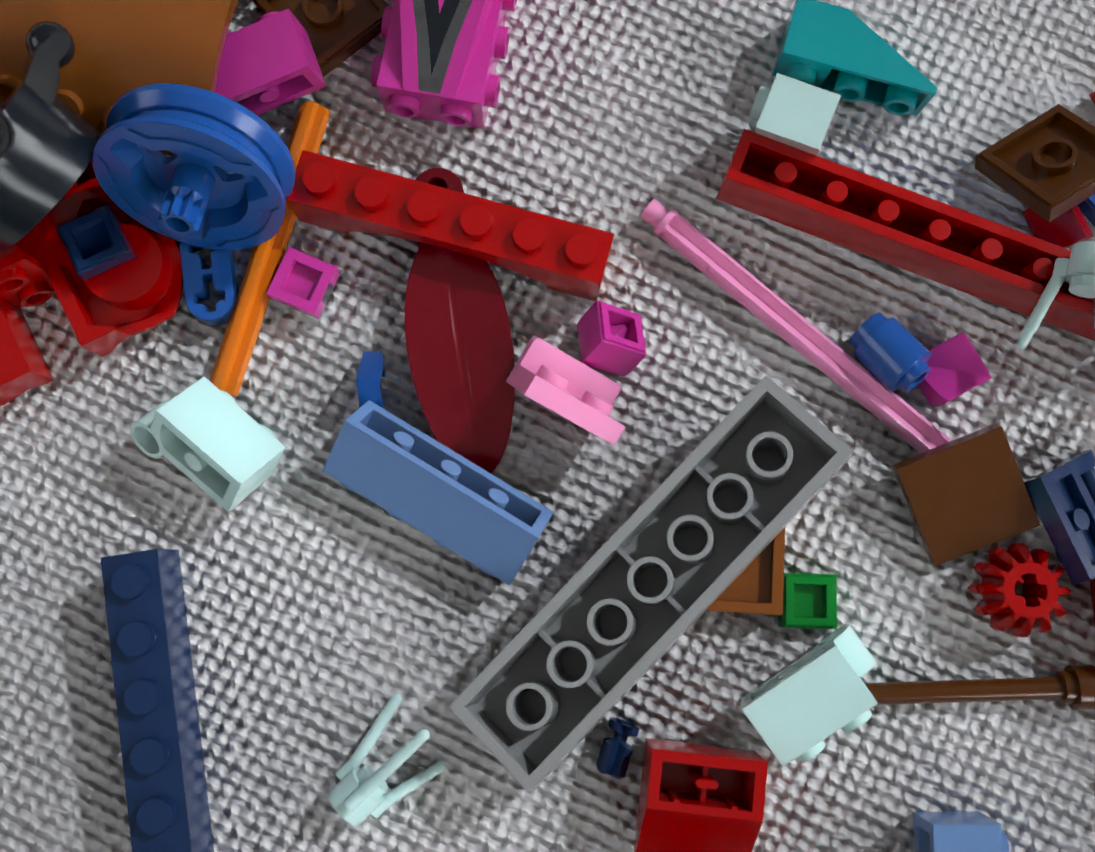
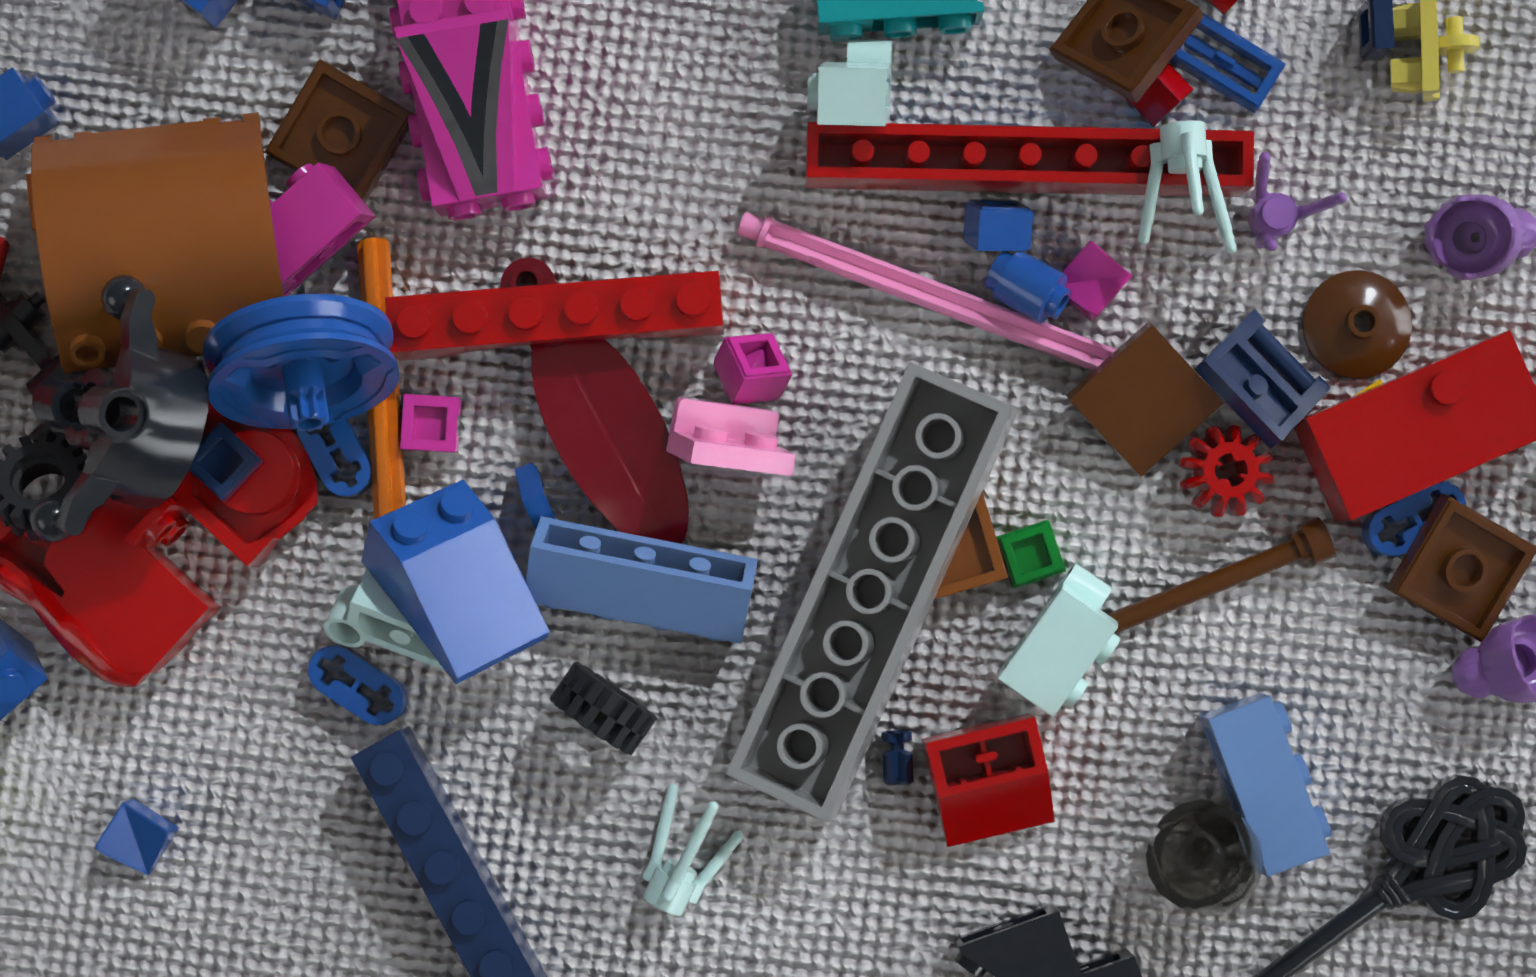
camera: 20 degrees left, 5 degrees up
(134, 501) = (349, 695): none -> blue beam
(262, 427) = (454, 580): none -> slope
(356, 599) = (603, 708): none -> black tyre
(881, 289) = (997, 225): none -> blue slope

